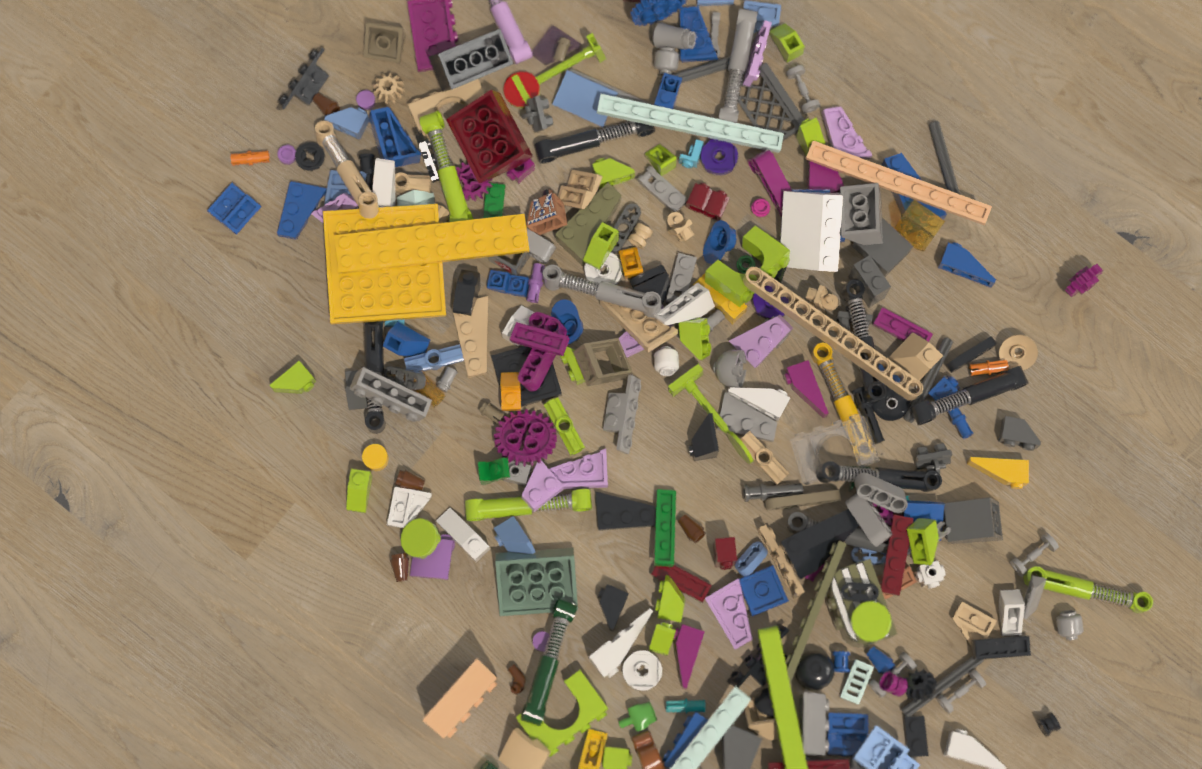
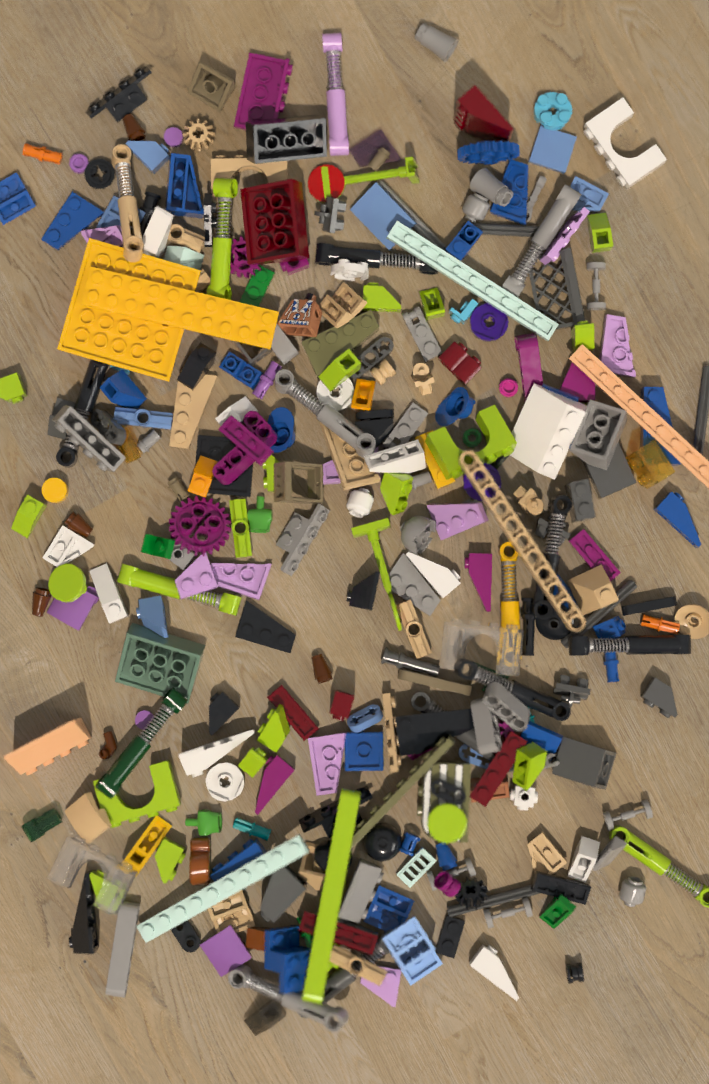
camera: 20 degrees right, 10 degrees up
(573, 156) = (349, 271): none -> white plate
(579, 410) = (260, 518): none -> bright green piece
(665, 528) = (296, 659): green plate -> none
(1006, 471) = (634, 728): yellow slope -> none
(1007, 670) = (557, 911): none -> green slope

